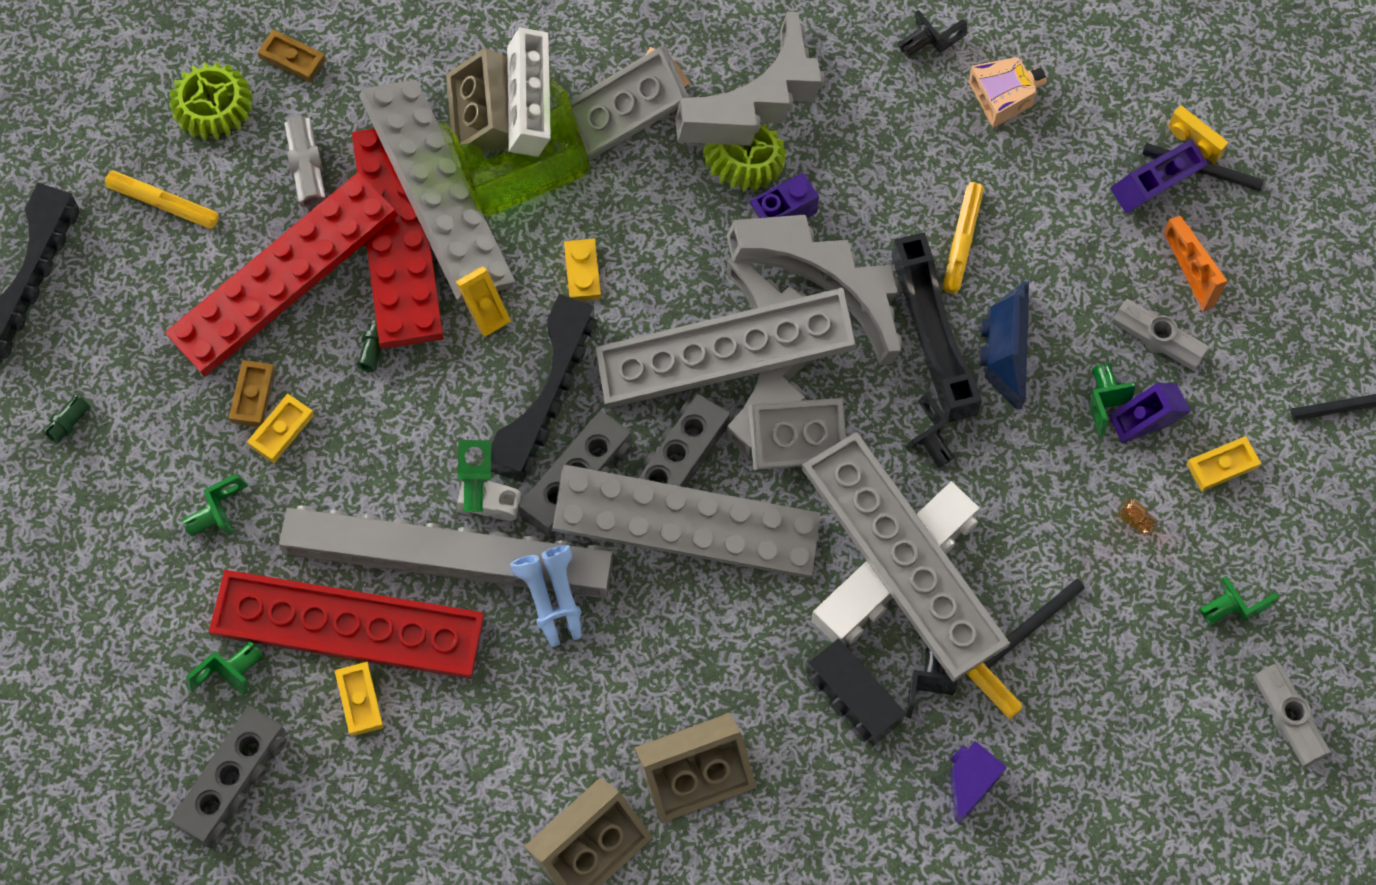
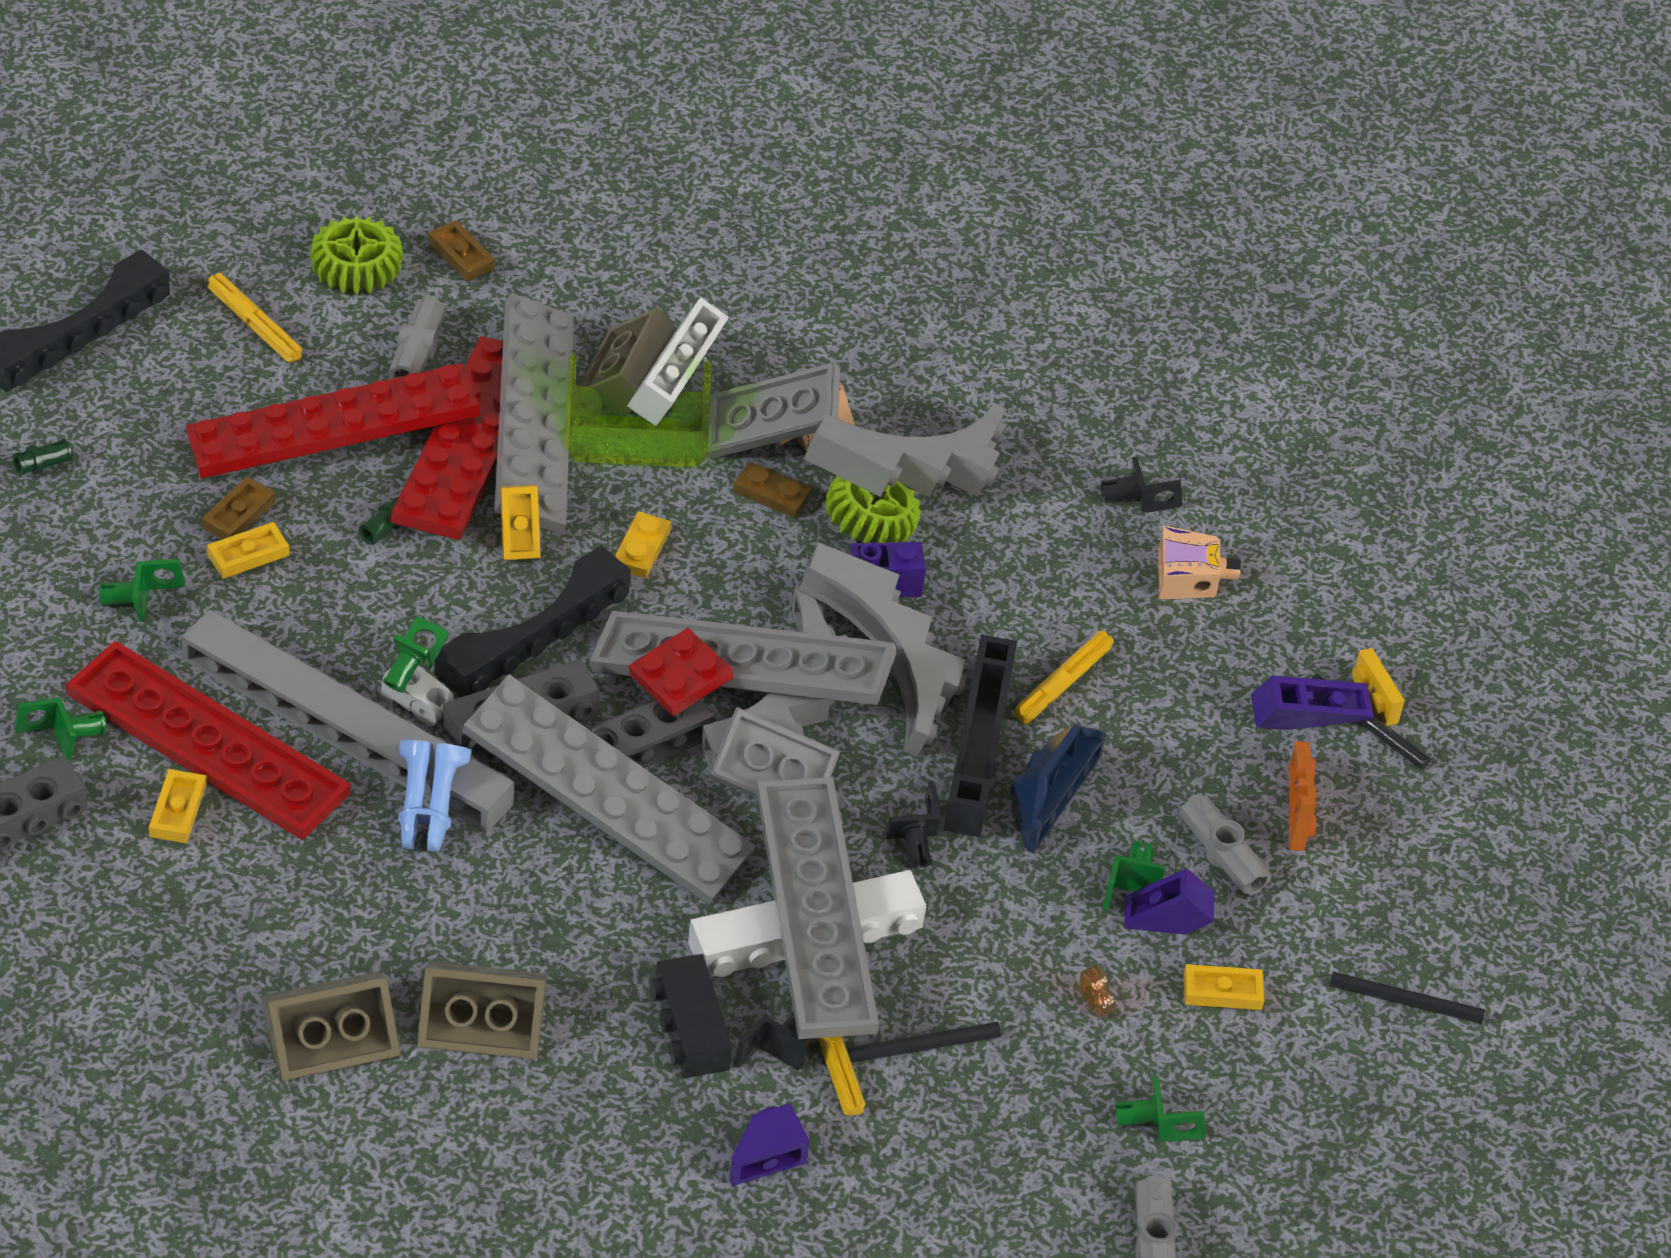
camera: 20 degrees right, 20 degrees down
(654, 169) = (772, 489): none -> pearl gold plate
(687, 387) = (680, 671): none -> red plate

